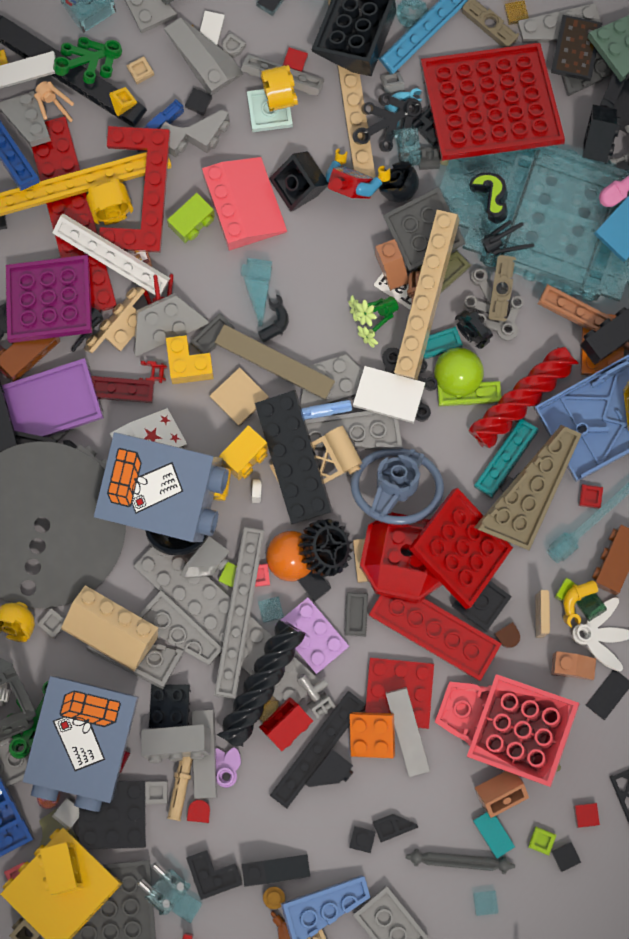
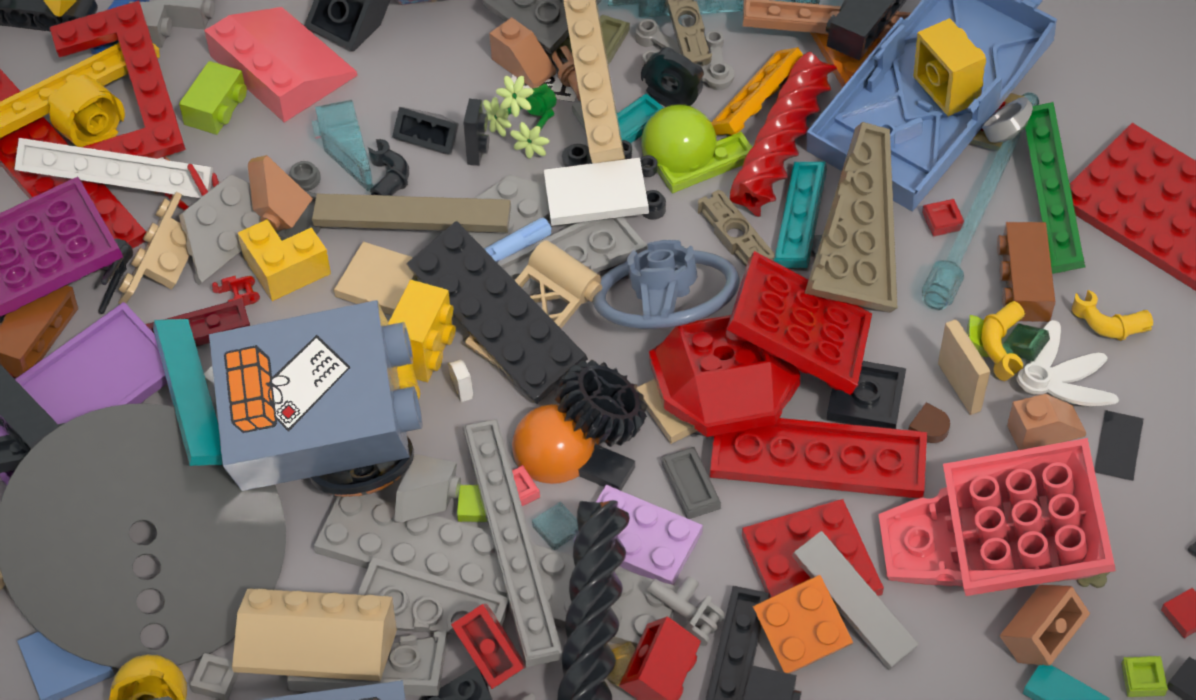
camera: 20 degrees left, 25 degrees down
(97, 443) = (189, 391): none -> teal tile
(197, 321) = (275, 194): none -> nougat slope
(199, 676) = (489, 645): none -> red brick
(224, 302) = (305, 175): none -> dark grey plate
(311, 296) = (425, 129): none -> black slope
(335, 320) = (475, 127): none -> black plate
(464, 468) = (725, 216): none -> dark tan piece
(523, 355) = (754, 93): none -> light orange plate

